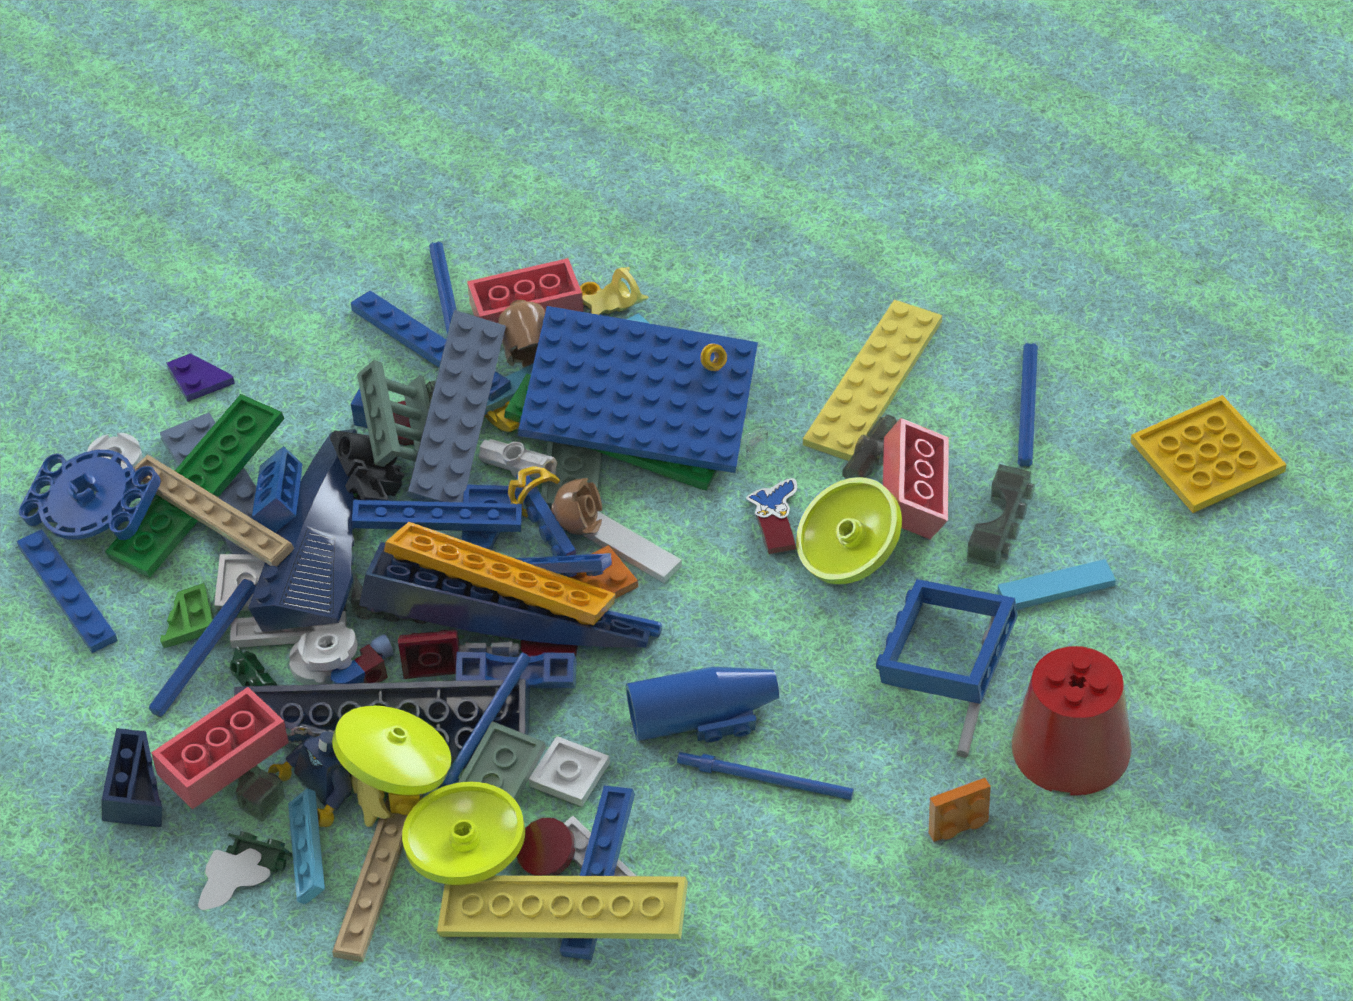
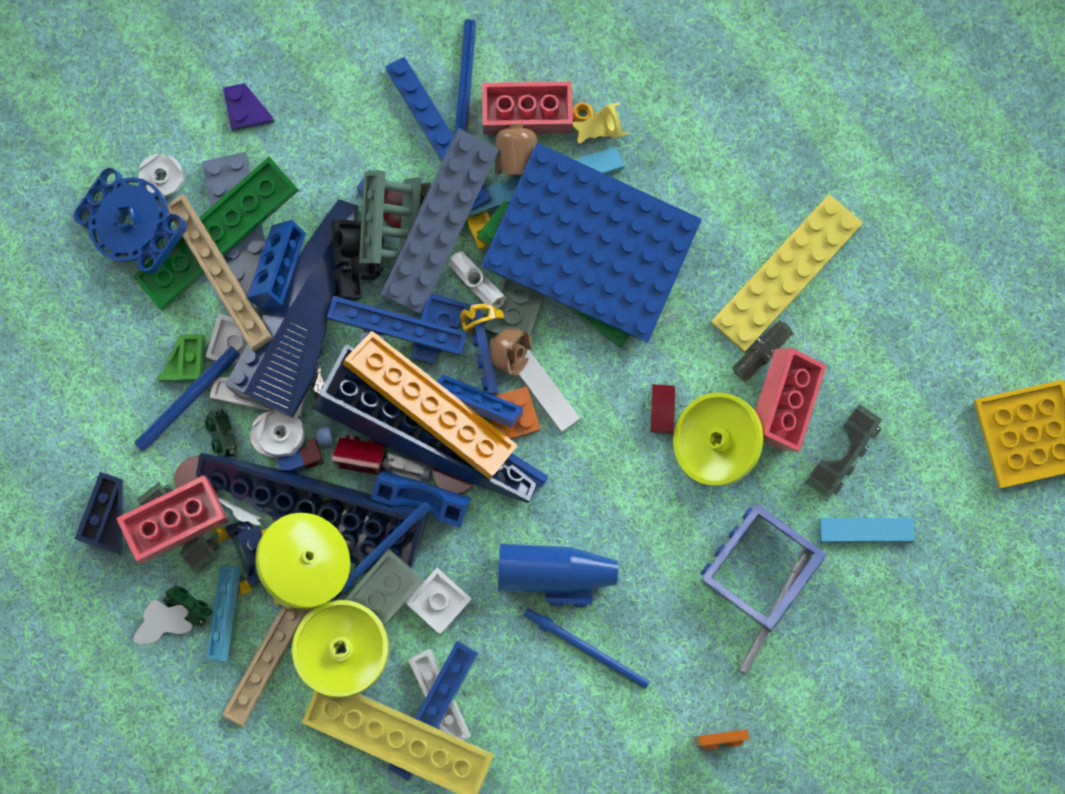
camera: 10 degrees right, 30 degrees up
(67, 591) = (96, 303): blue plate -> none
(546, 847) = (402, 672): dark red tile -> none
(719, 360) = (659, 235): yellow plate -> none
(773, 499) = (668, 375): sticker -> none
(1027, 405) = (903, 337): blue axle -> none
(1073, 723) = (812, 691): red cone -> none

